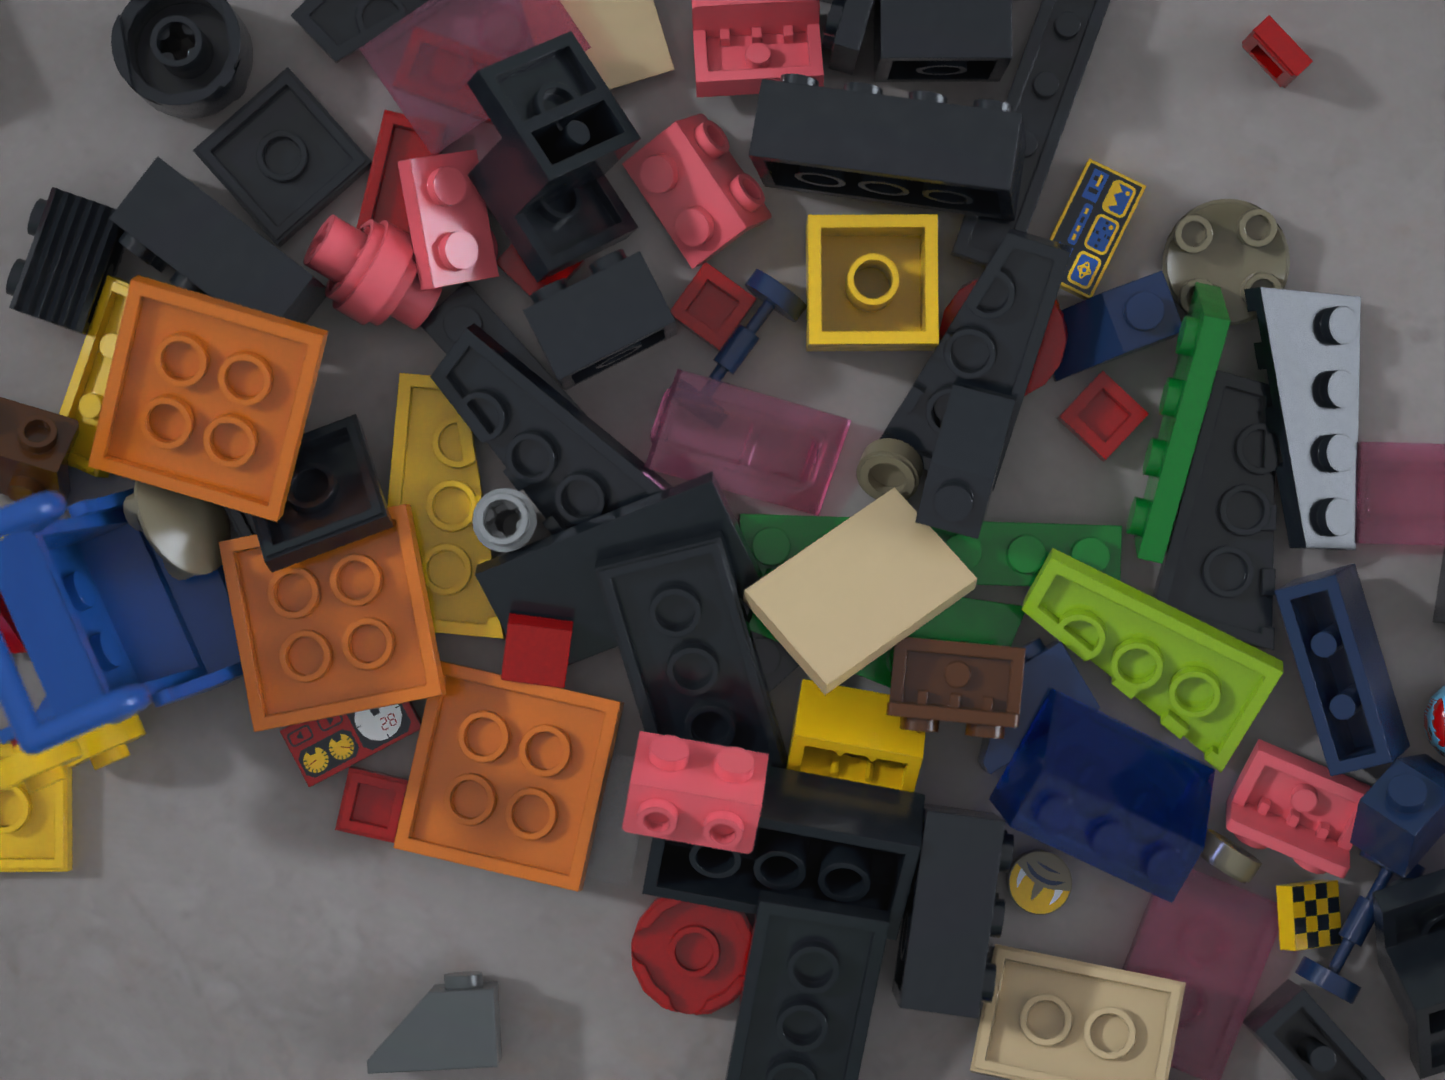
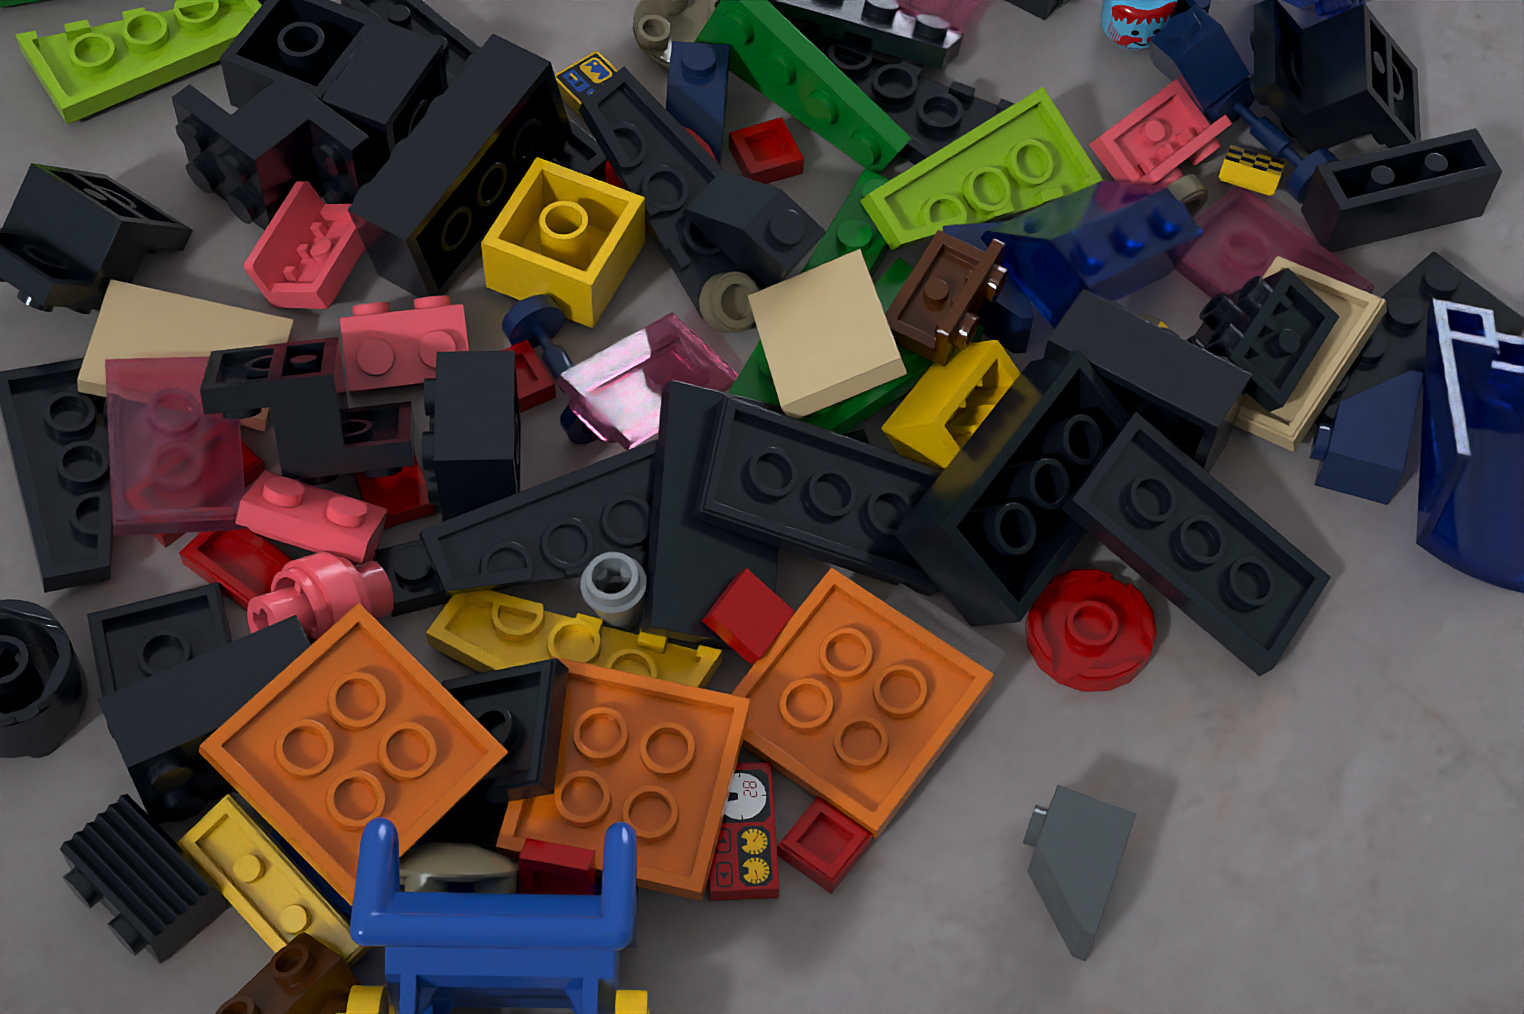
camera: 65 degrees left, 30 degrees down
(214, 606) = (556, 869): none -> red tile
(695, 792) = (949, 503): coral bracket -> none
(1059, 994) = (1269, 331): none -> black bracket
(1342, 670) = (1064, 60): dark blue brick -> none

